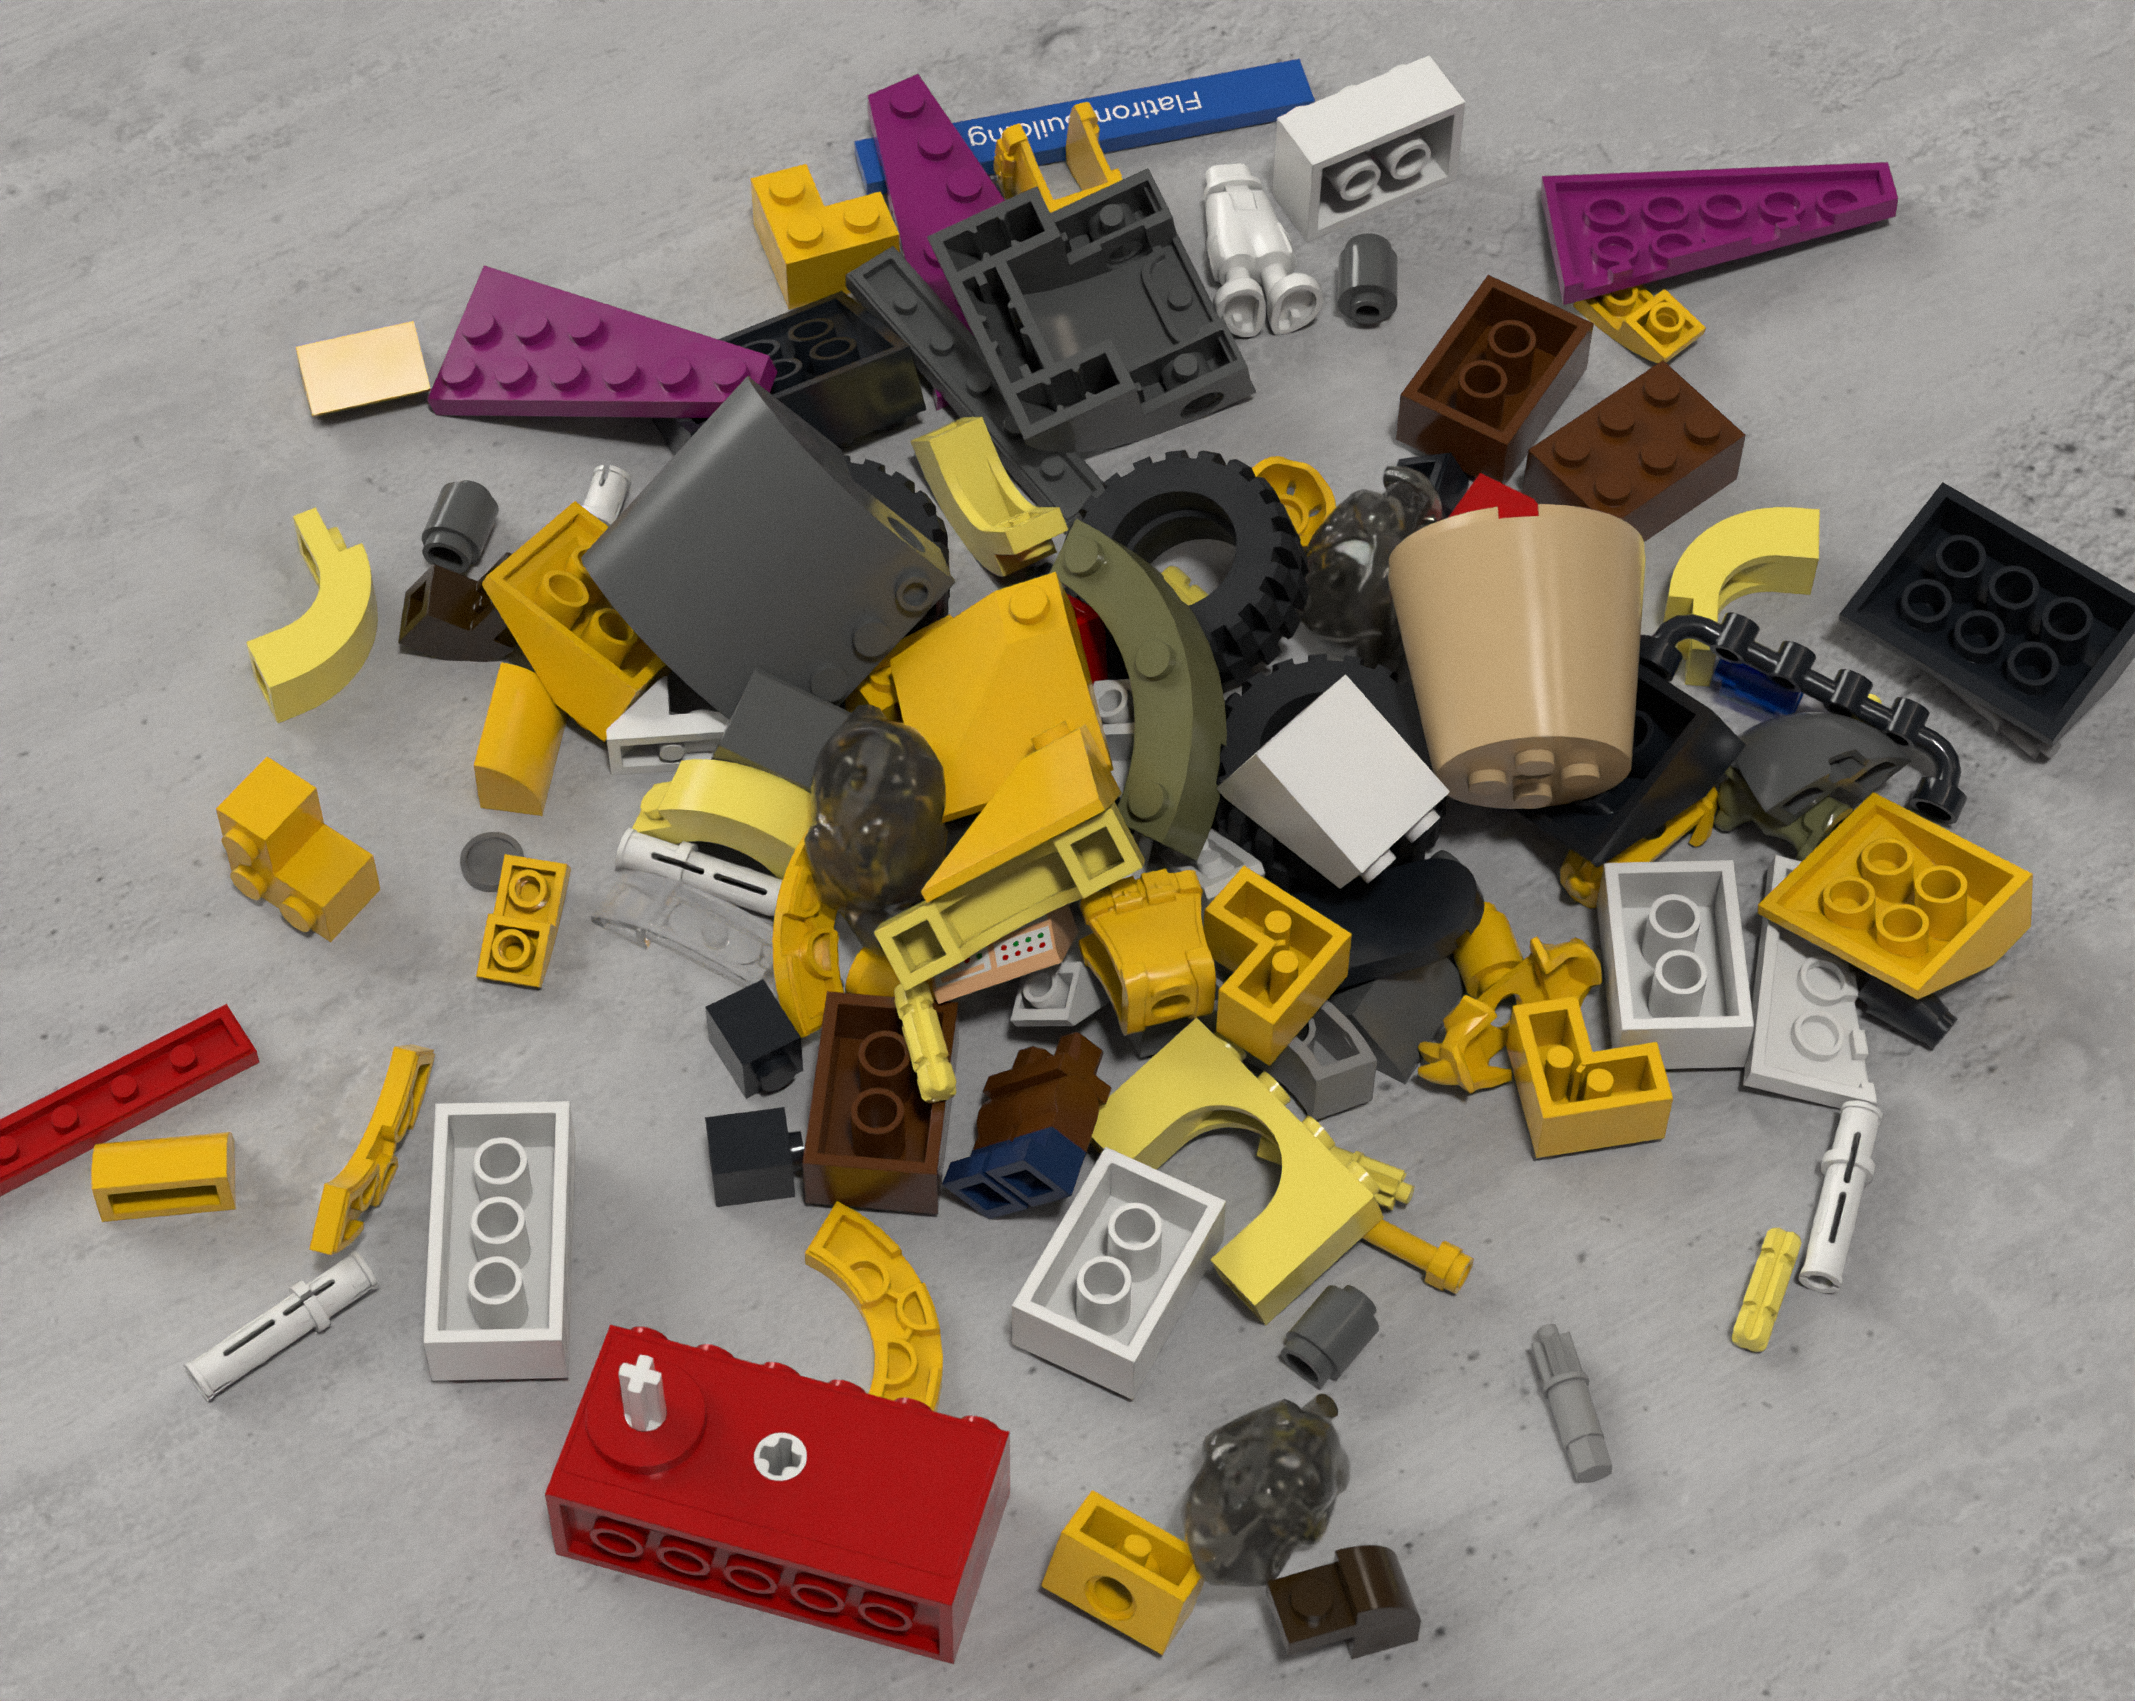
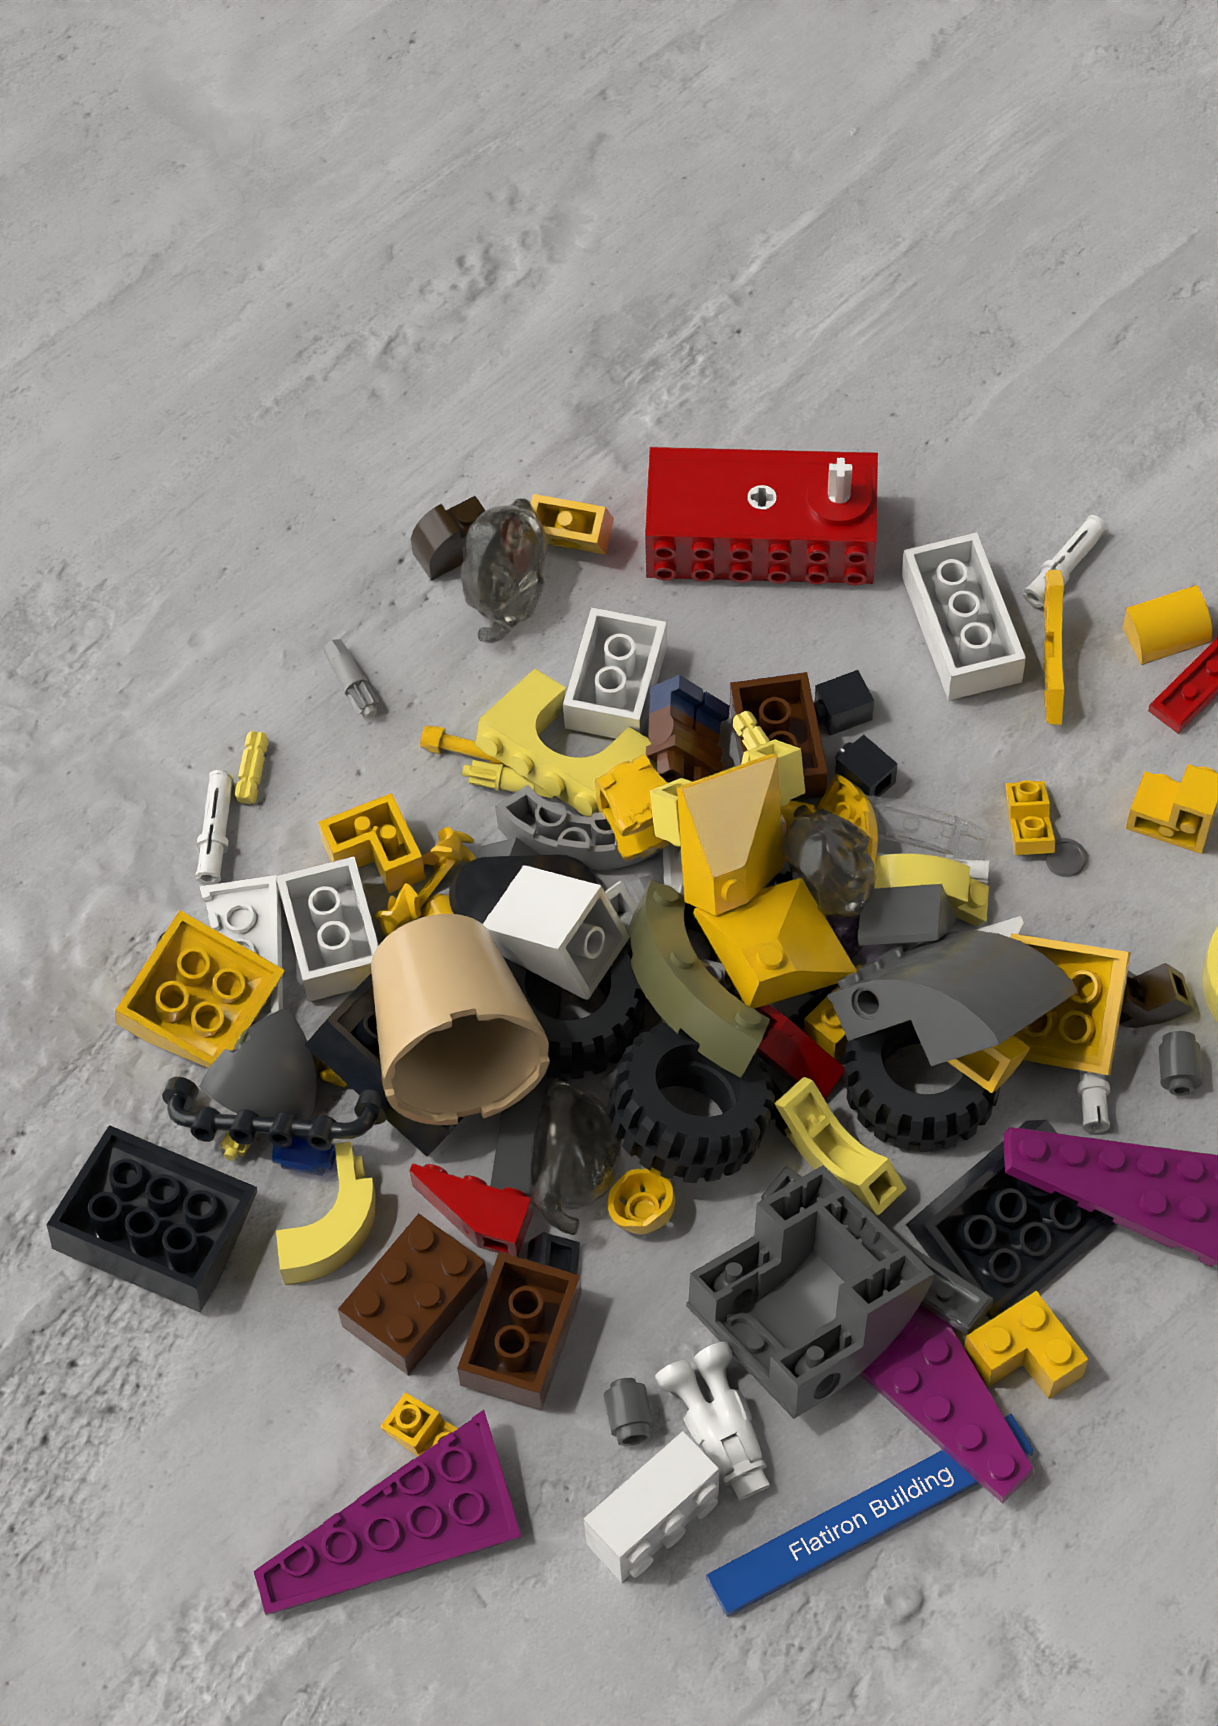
camera: 170 degrees right, 5 degrees up
(518, 743) = (1077, 911): yellow brick -> none
(890, 1300) = (727, 639): yellow tile -> none
(1019, 171) = (848, 1404): yellow piece -> none
(1281, 960) = (561, 821): yellow brick -> none
(1330, 1334) = (491, 680): dark grey brick -> none

